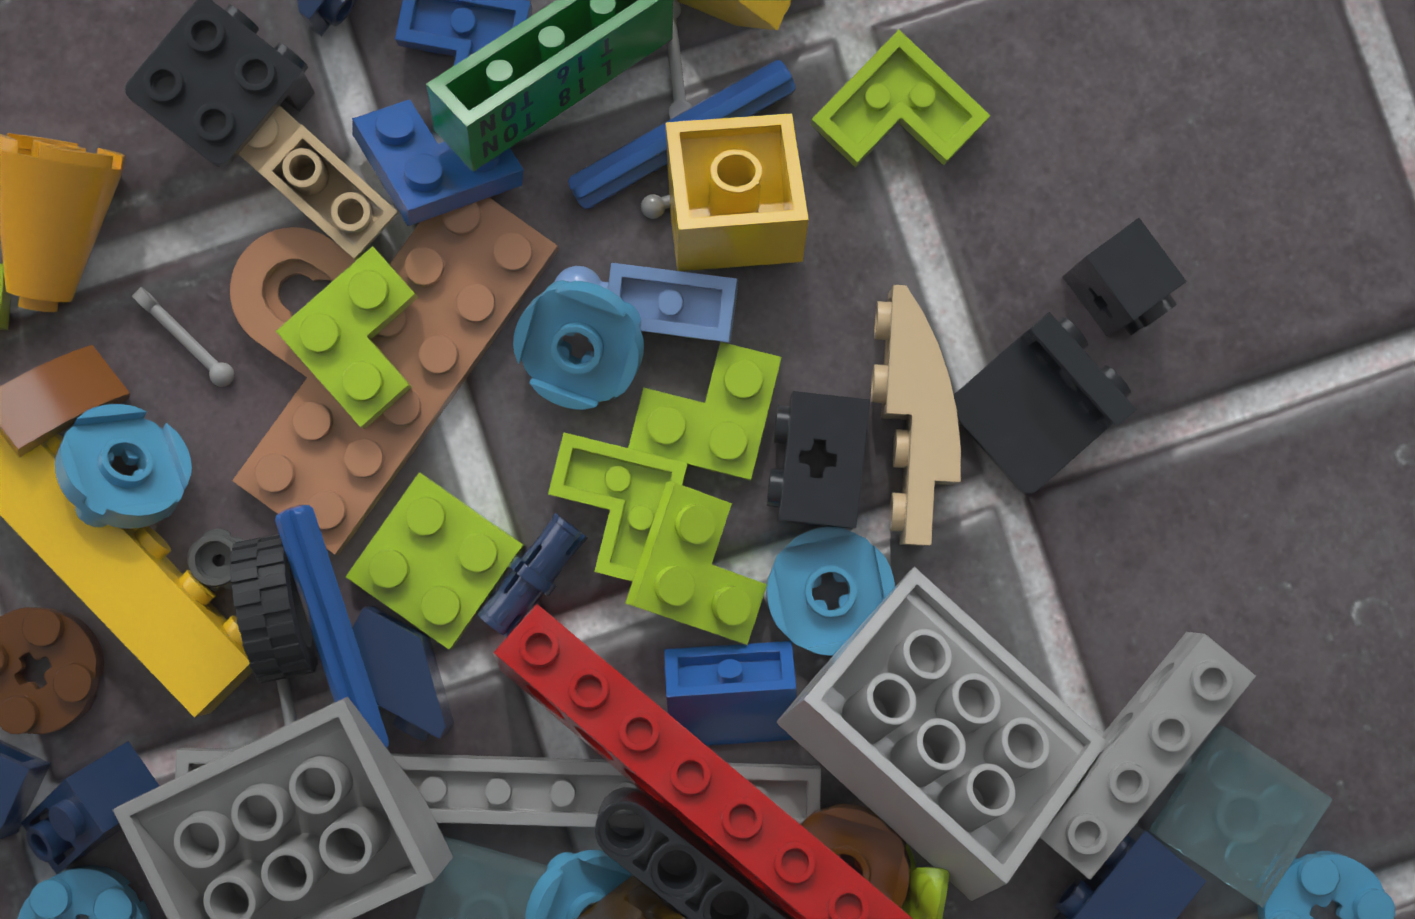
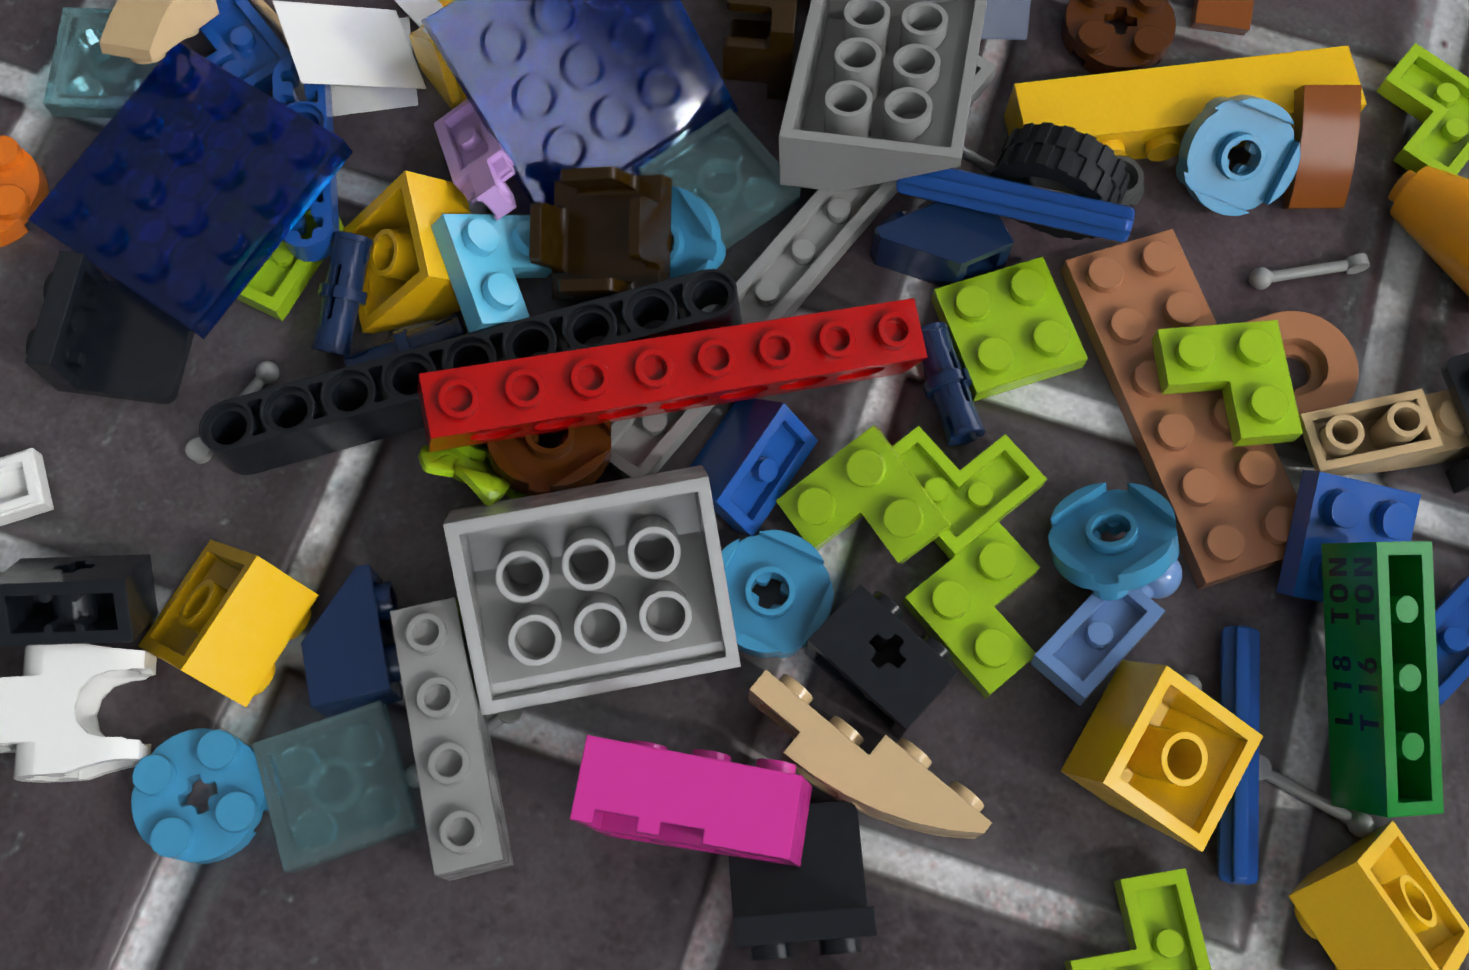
camera: 125 degrees right, 15 degrees down
(1049, 523) = (692, 800): none -> dark pink wedge

